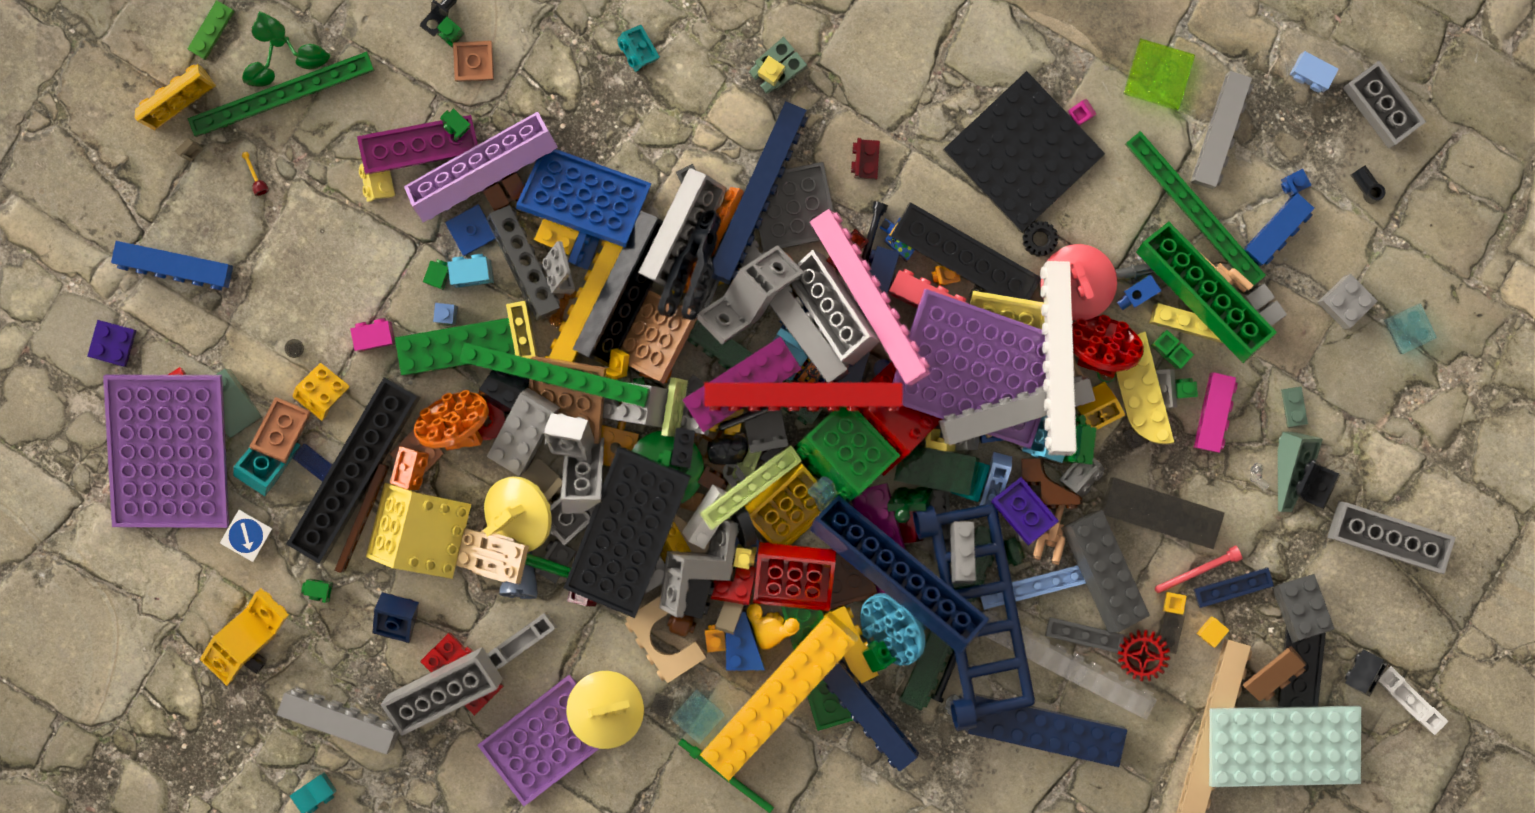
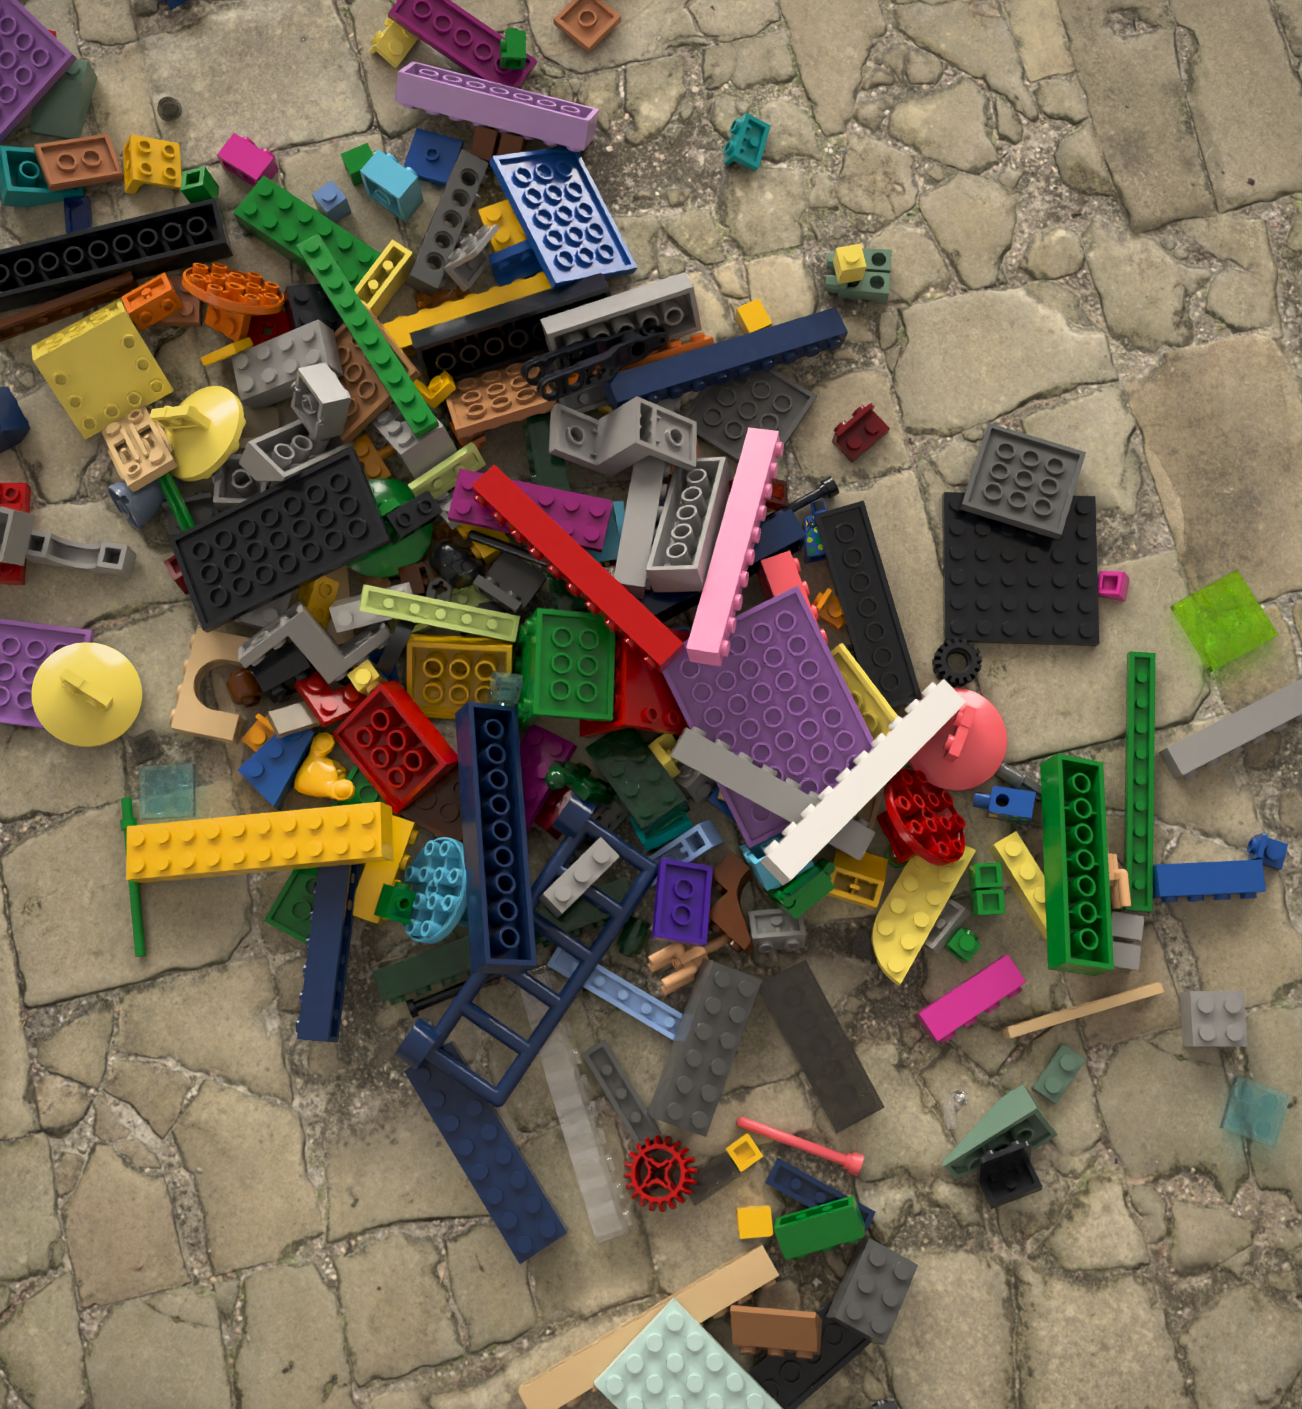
camera: 40 degrees right, 10 degrees down
(365, 378) = (199, 185): none -> green brick
(481, 456) = (227, 351): none -> yellow tile
(746, 151) = (752, 317): none -> yellow brick
(981, 102) = (1023, 481): none -> dark grey plate
(1248, 603) = (819, 1228): none -> green brick
(1277, 362) = (1082, 1010): none -> tan tile
(1391, 537) = (1036, 1310): light grey brick -> none

